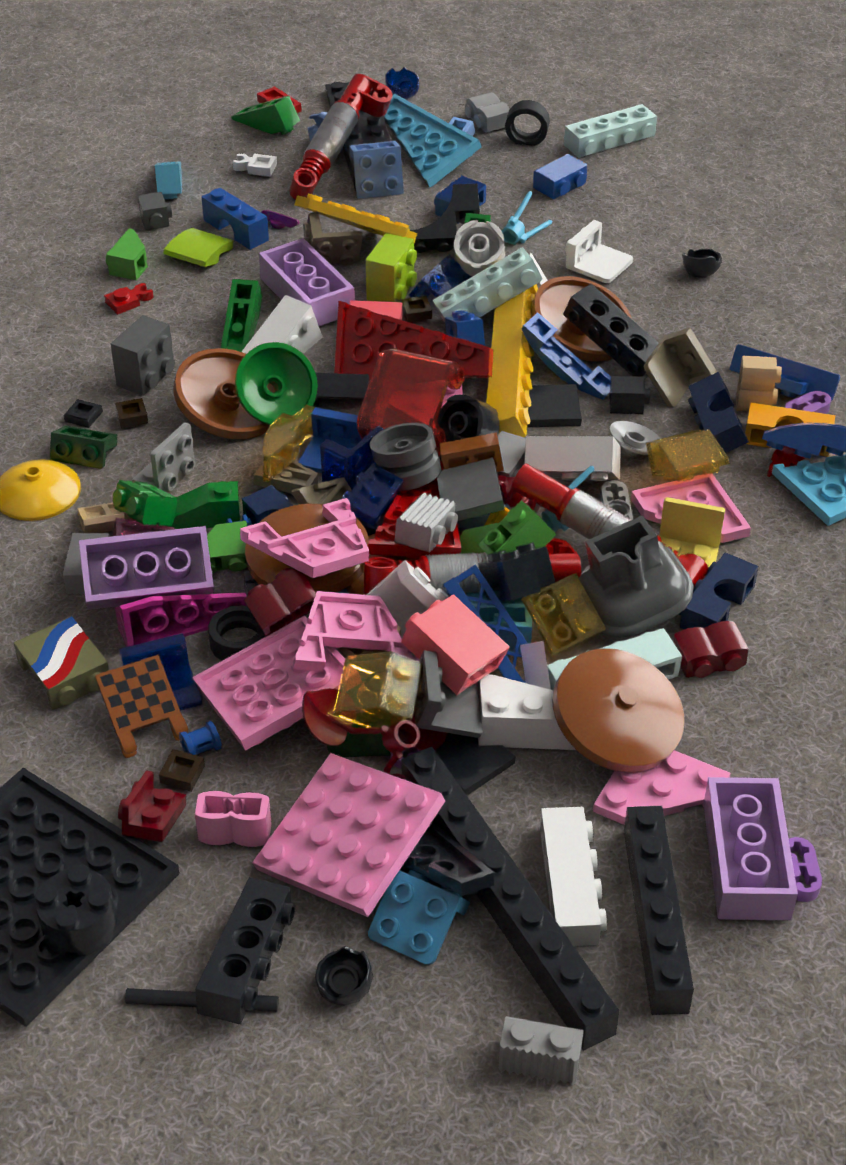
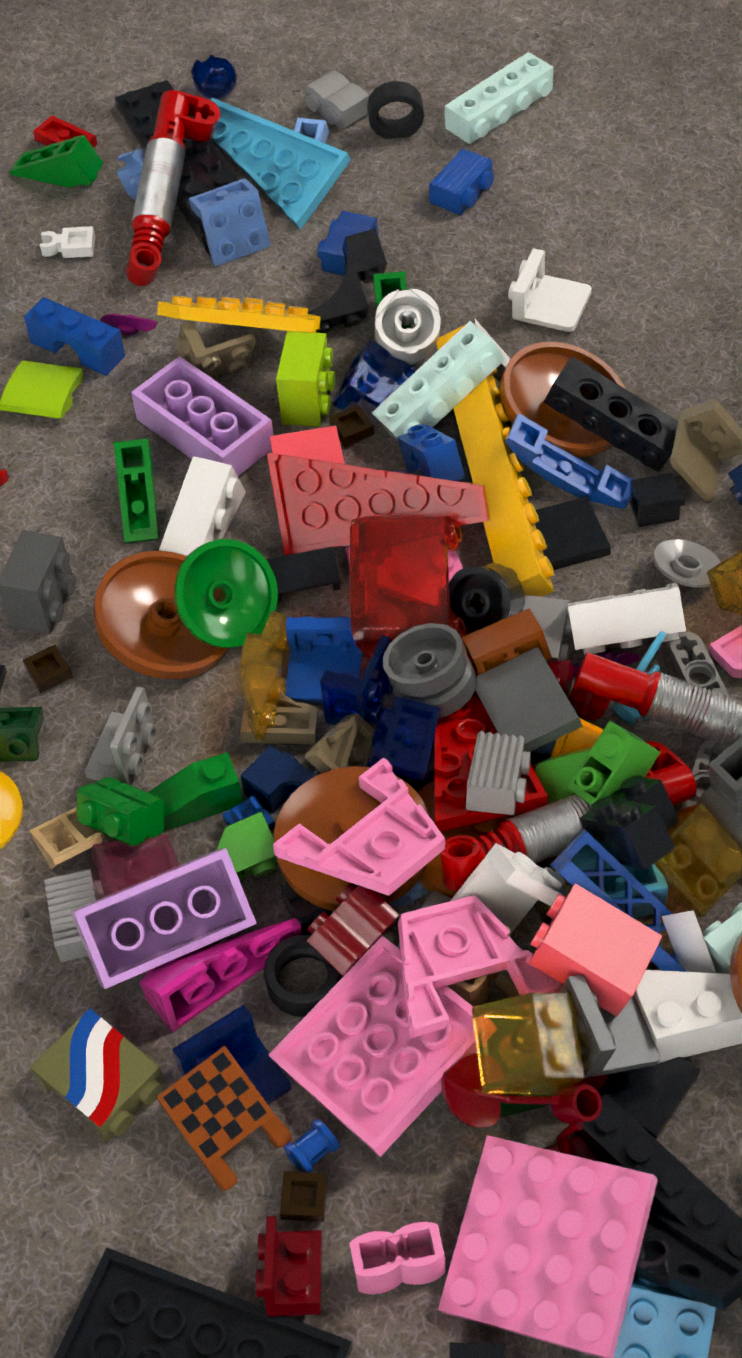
camera: 10 degrees left, 10 degrees up
(515, 229) = (431, 277): medium azure plant -> none
(702, 262) = (678, 277): black hair -> none

